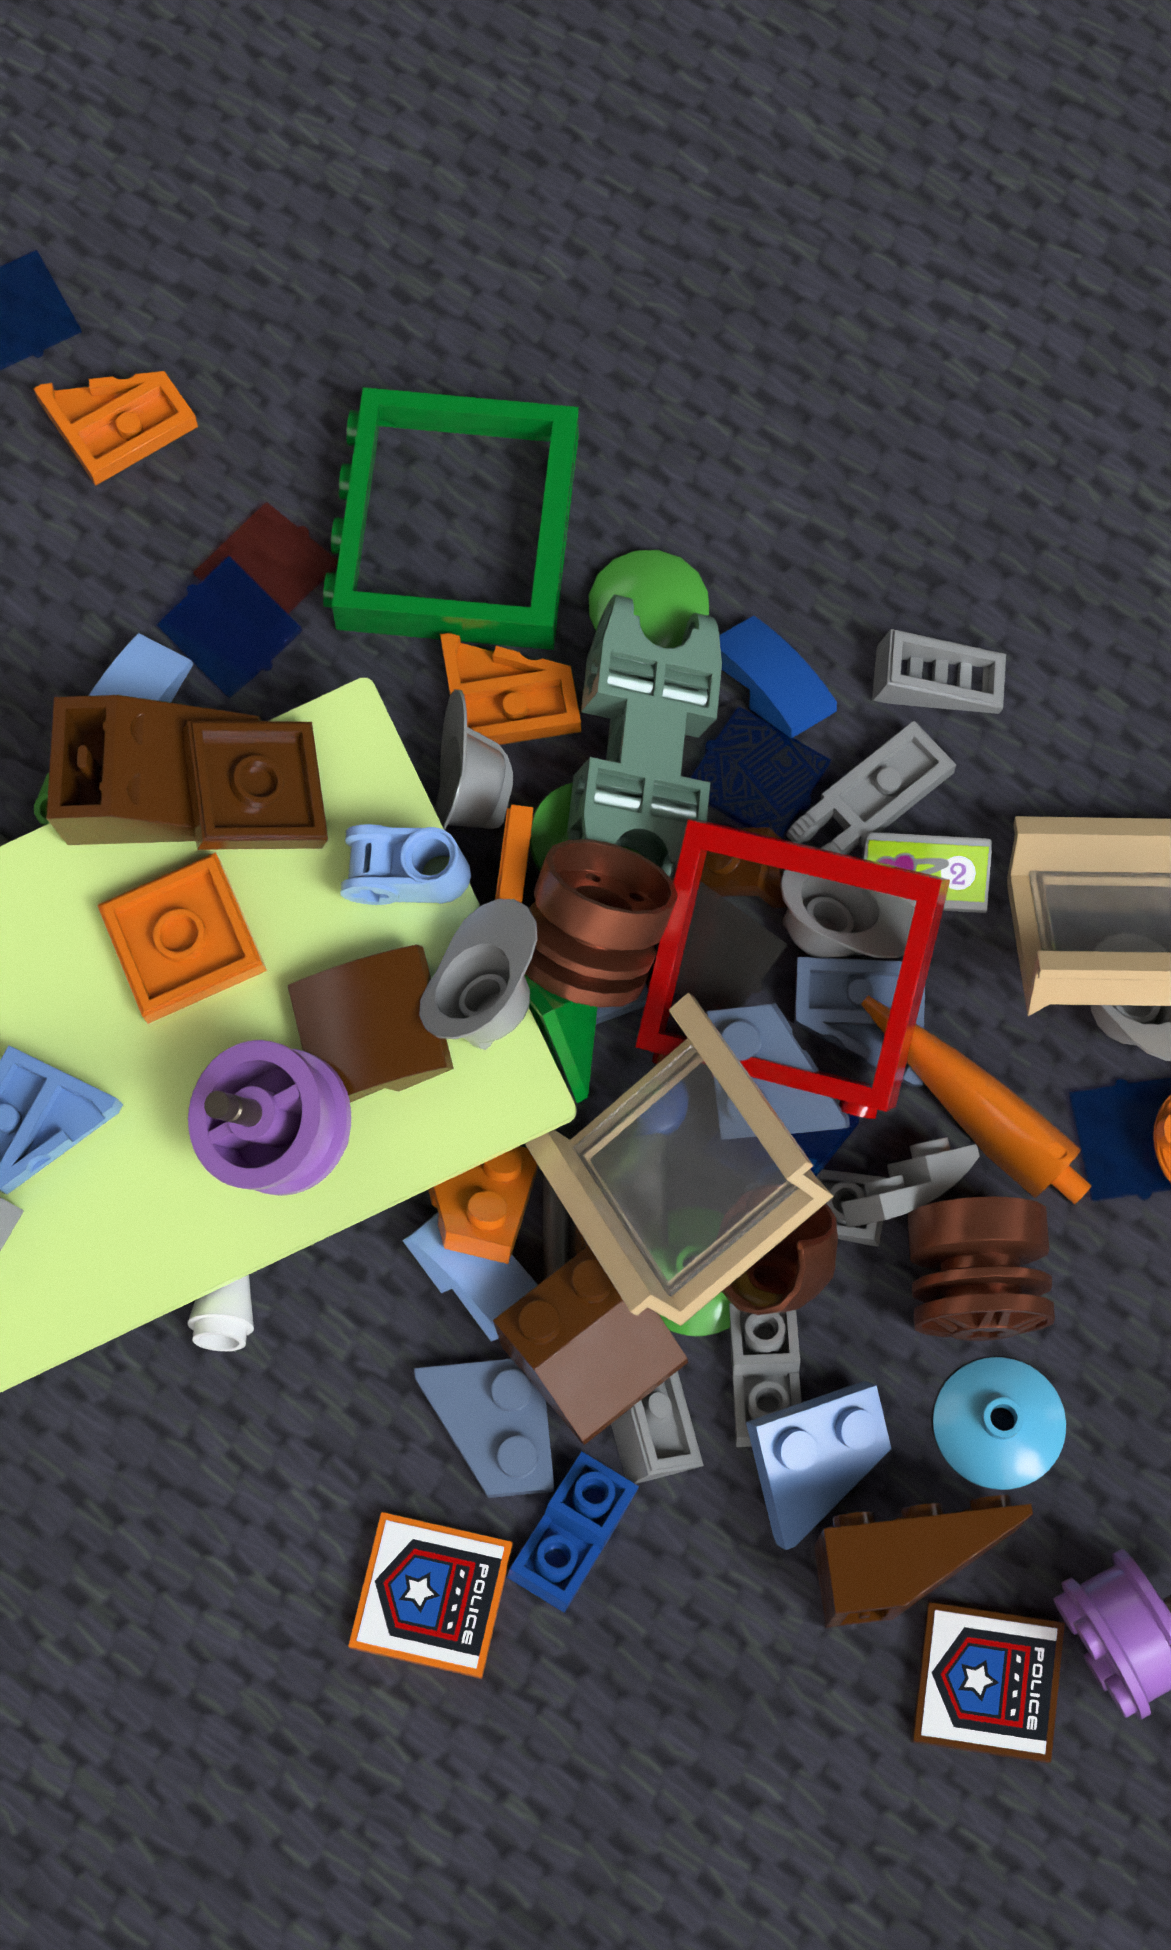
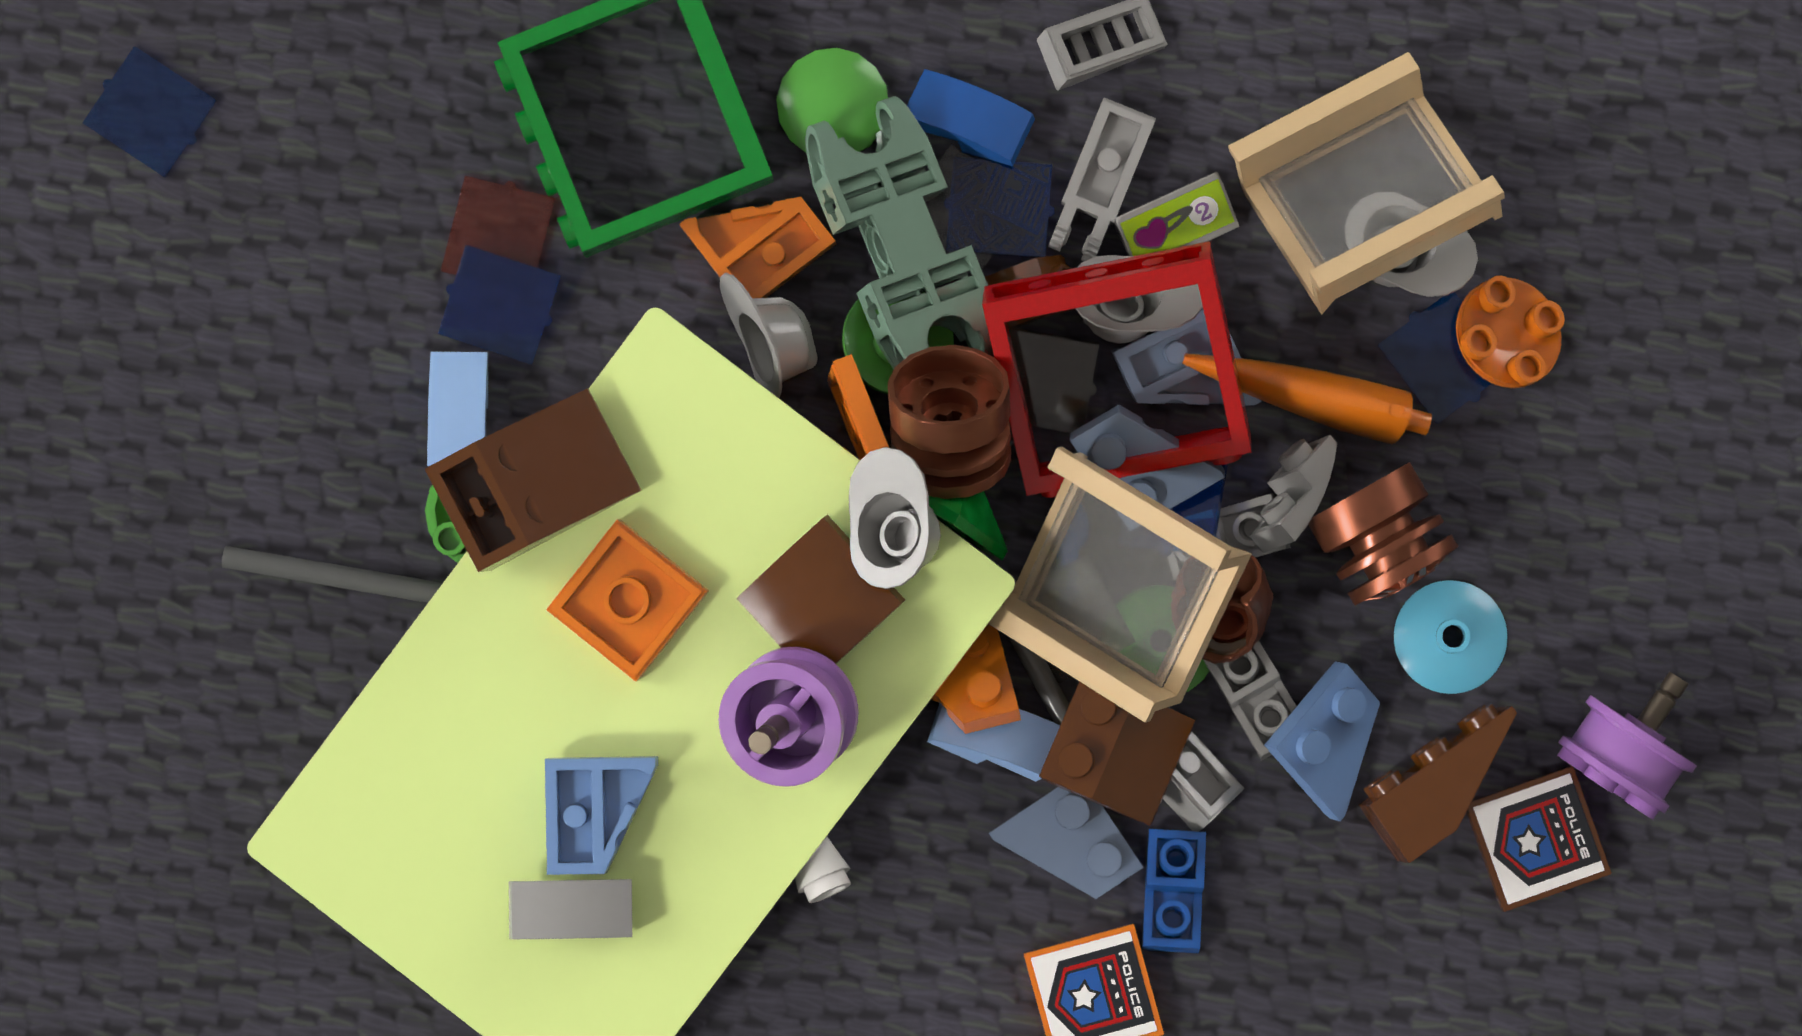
camera: 25 degrees left, 15 degrees up
(117, 419) = (298, 171): orange wing -> none
(254, 785) = (620, 451): reddish brown tile -> none
(390, 864) = (765, 459): light blue piece -> none

